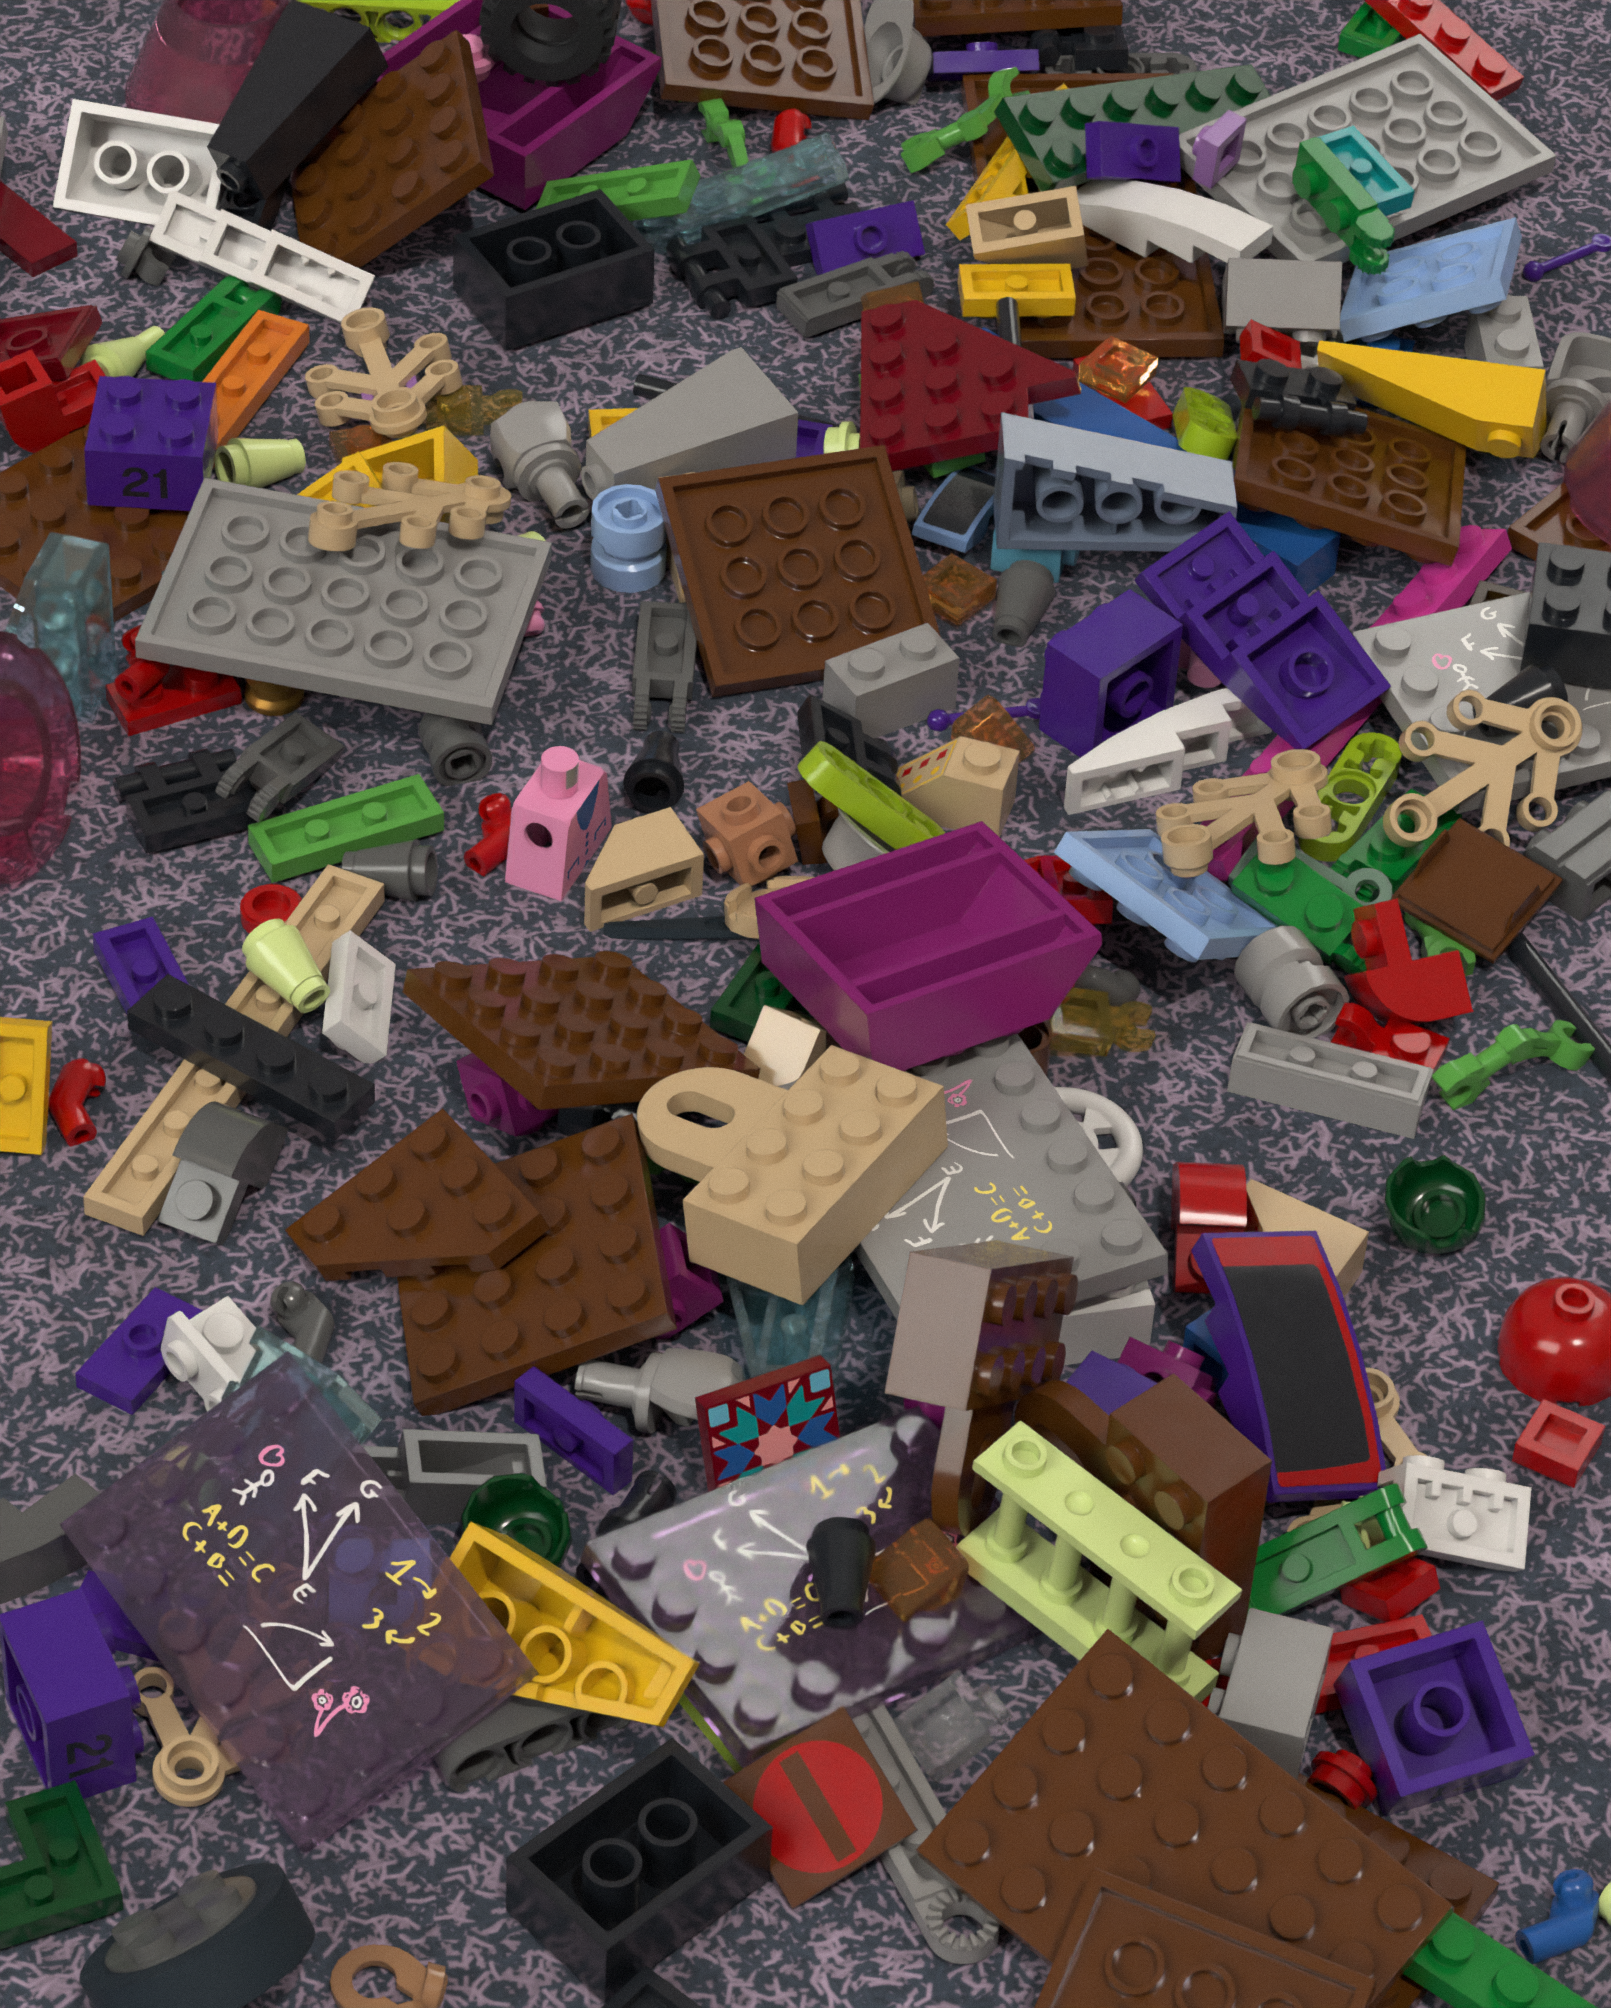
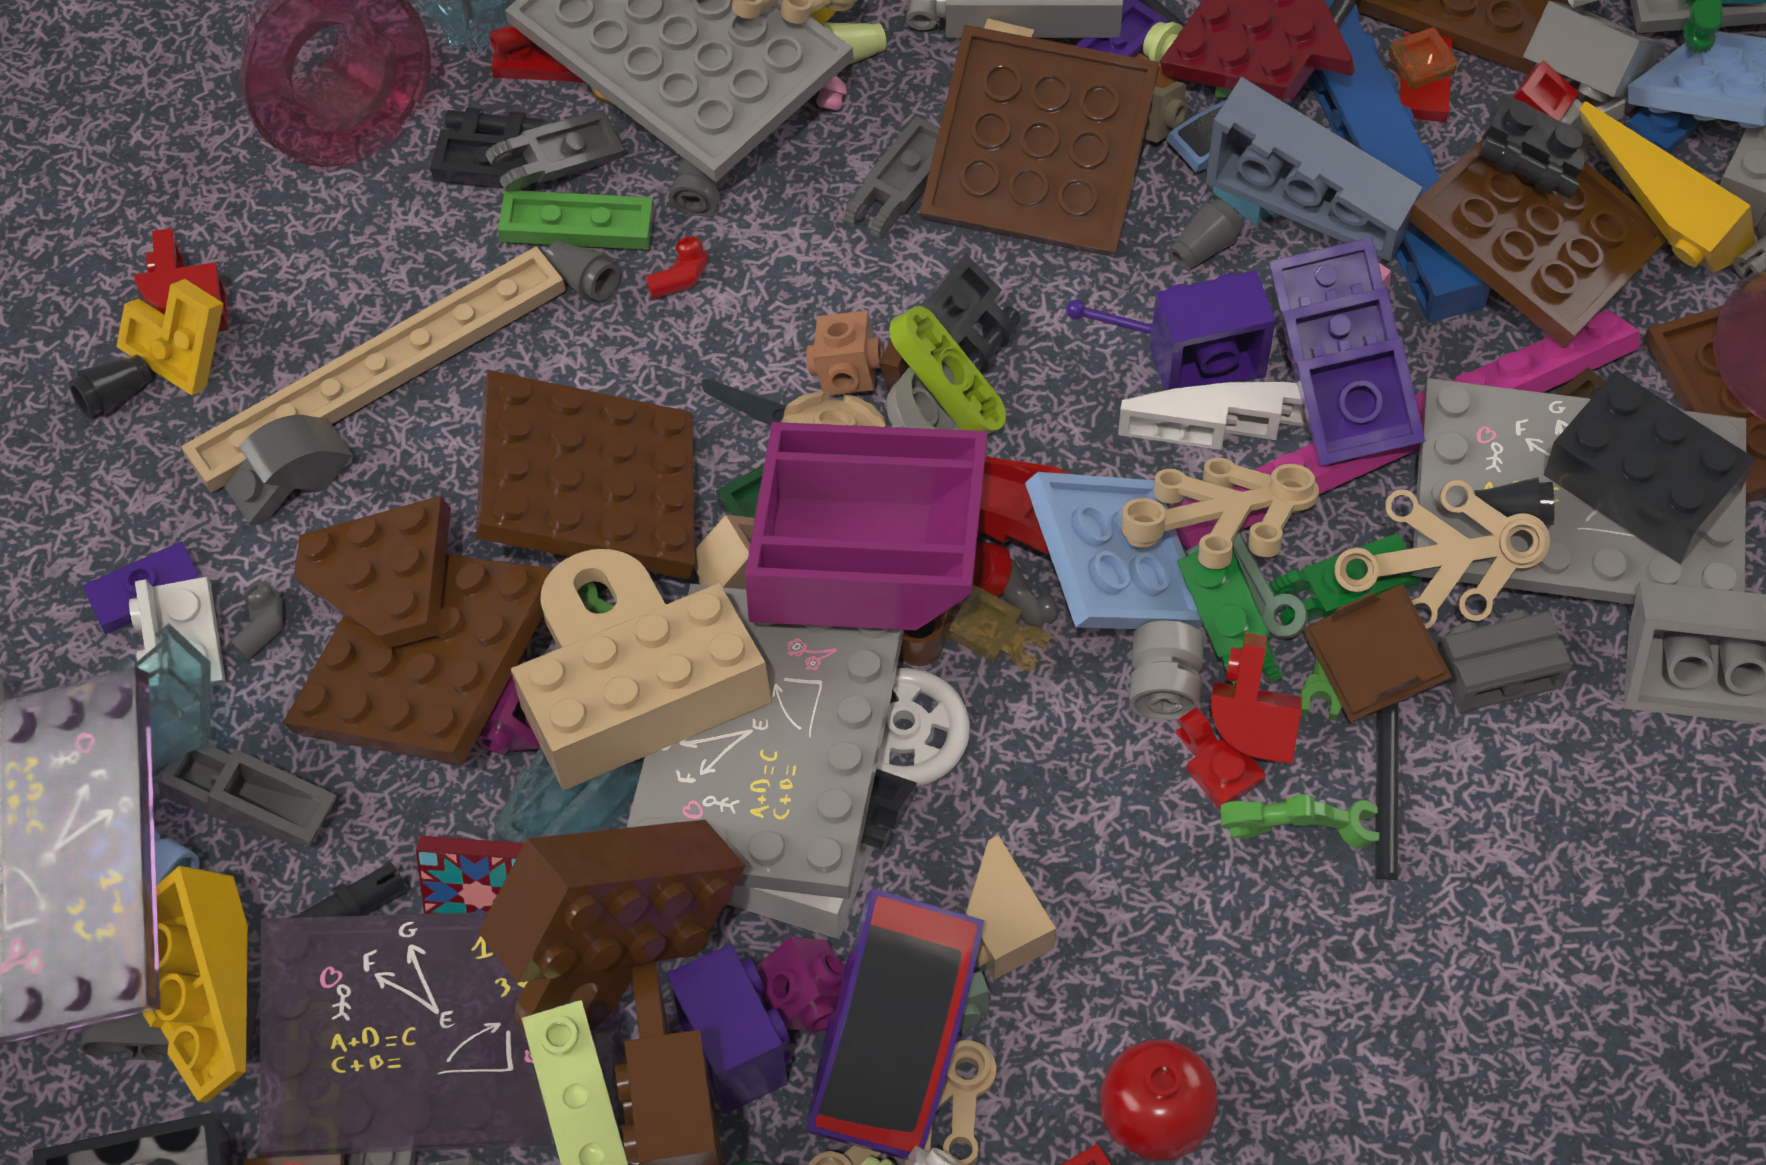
camera: 35 degrees right, 15 degrees up
(68, 1095) = (237, 358): red arm -> none
(135, 959) = (355, 282): dark purple plate -> none
(251, 1056) = (364, 386): black plate -> none
(267, 903) = (479, 260): red tile -> none
(285, 964) = (434, 321): yellowish green cone -> none
(359, 998) = (491, 347): white plate -> none
(524, 1512) = (260, 851): dark green hair -> none
(559, 805) = (712, 284): bright pink torso -> none
(573, 1430) = (370, 800): dark purple plate -> none
(628, 539) = (933, 56): light blue wheel -> none
(643, 869) = (751, 347): tan slope -> none
(655, 775) = (825, 269): black cone -> none
(662, 1384) = (449, 801): light grey piece -> none
(841, 1566) = (429, 1034): black cone -> none
(894, 680) = (1048, 266): light grey brick -> none
(919, 1571) = (491, 1060): clear orange slope -> none
(958, 588) = (1164, 201): clear orange plate -> none
(963, 783) = (1040, 380): tan slope -> none
(991, 723) = (1098, 344): clear orange slope -> none
(1203, 1201) = (948, 849): red brick -> none
(1204, 424) = (1452, 136): lime beam -> none
(1329, 1080) = (1144, 767): light grey slope -> none
(1349, 777) = (1355, 498): lime beam -> none
(1435, 1197) = (1141, 908): dark green hair -> none

